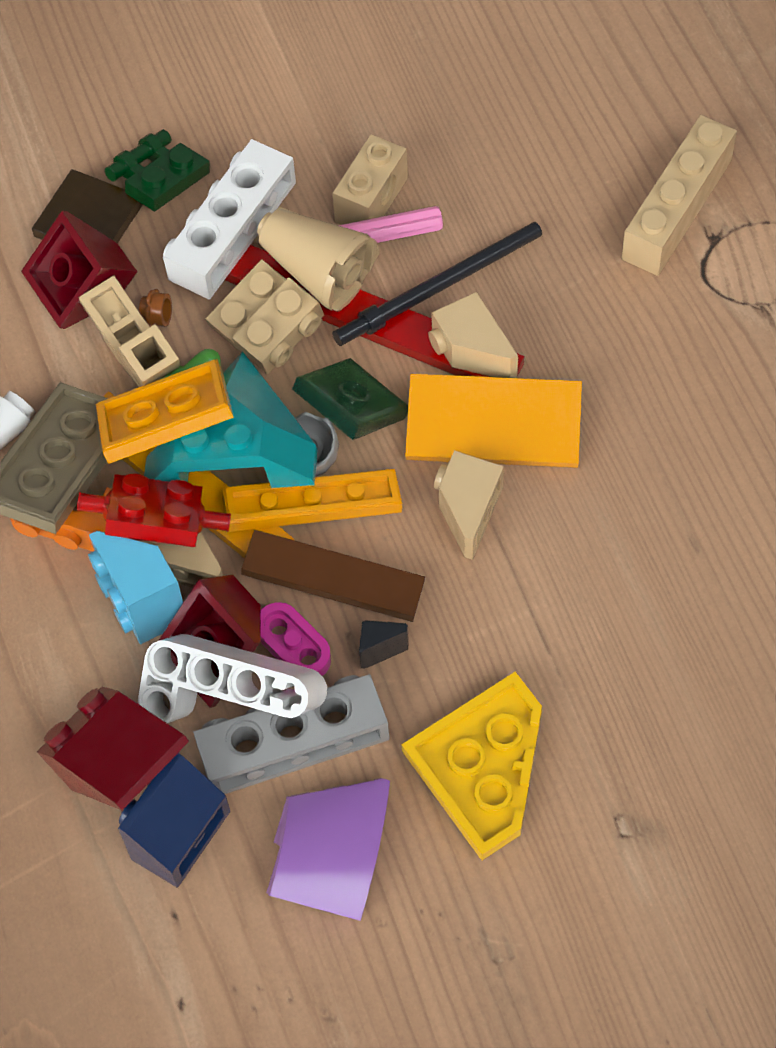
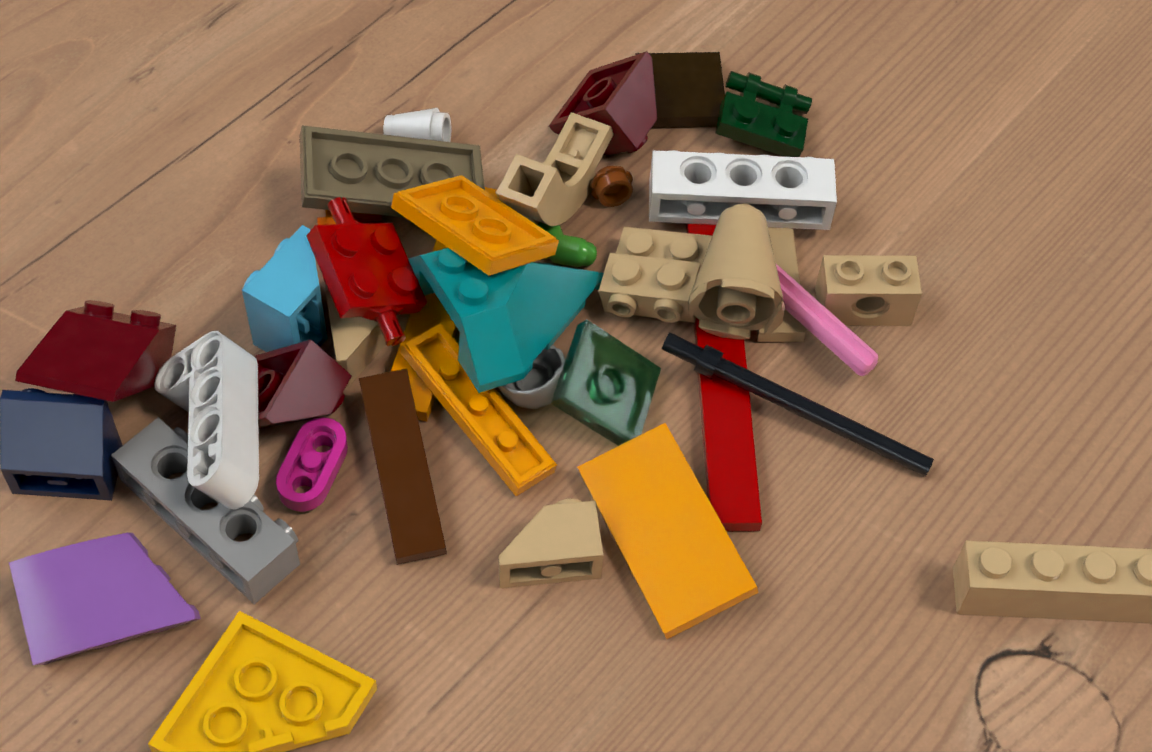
camera: 55 degrees right, 5 degrees down
(381, 641) = (345, 538): black slope -> none
(472, 339) = (741, 456): tan slope -> none

